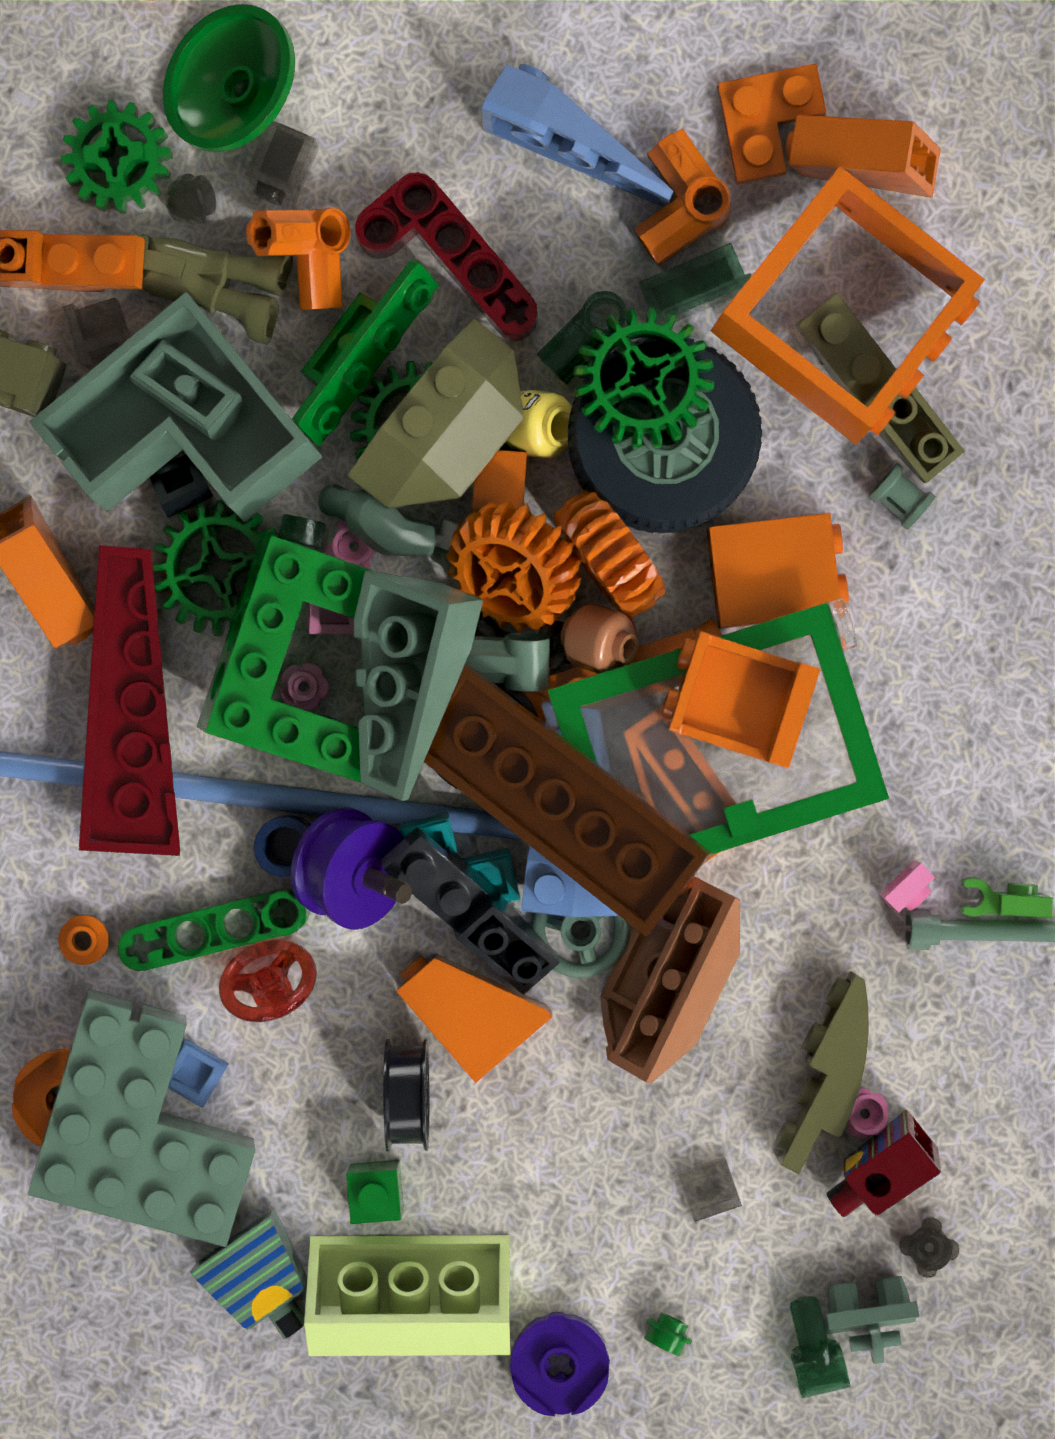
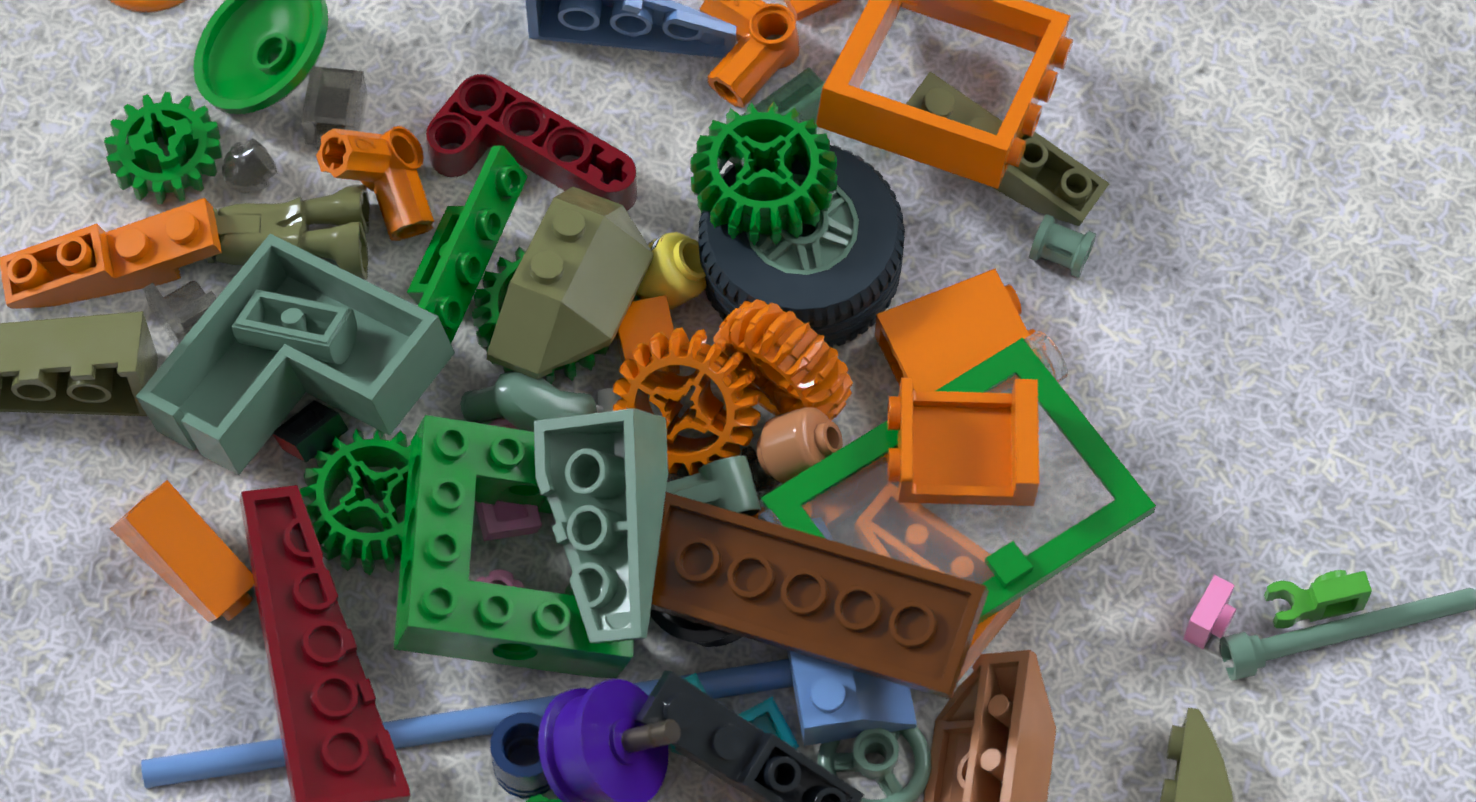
camera: 15 degrees left, 25 degrees down
(562, 351) = (675, 203): clear green piece -> none

